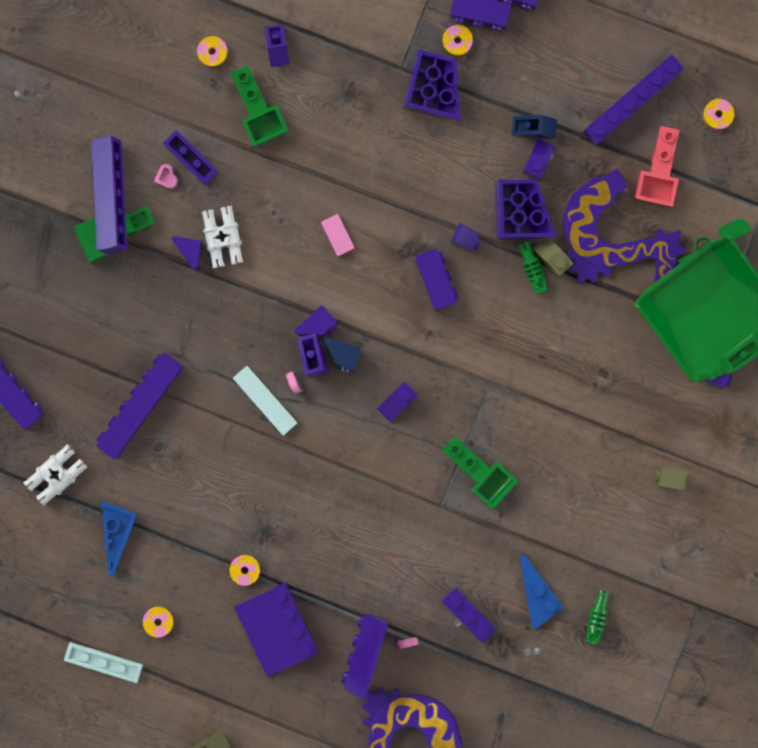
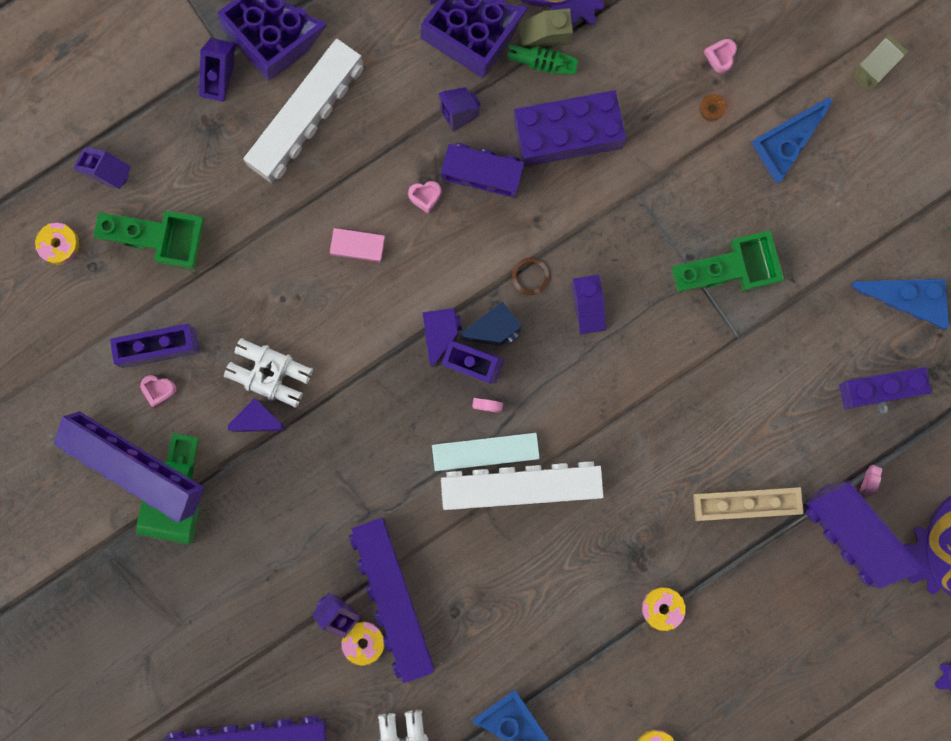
camera: 55 degrees left, 5 degrees down
(98, 398) = (367, 655): none -> yellow piece
(107, 378) = (335, 615): none -> dark purple slope
(257, 436) = (521, 487): none -> white brick
(276, 629) = (757, 619): dark purple slope -> none
(341, 578) = (748, 504): none -> tan plate
(387, 70) = (216, 68): none -> dark purple slope
(397, 144) = (304, 111): none -> white brick
(397, 255) = (425, 195): none -> bright pink tile
(403, 354) = (526, 291): none -> reddish brown piece
(499, 314) = (569, 128): none -> dark purple brick
(576, 394) = (712, 107): none -> clear orange tile
(581, 453) = (783, 143): none -> blue wing
(614, 376) = (721, 55): none -> bright pink tile

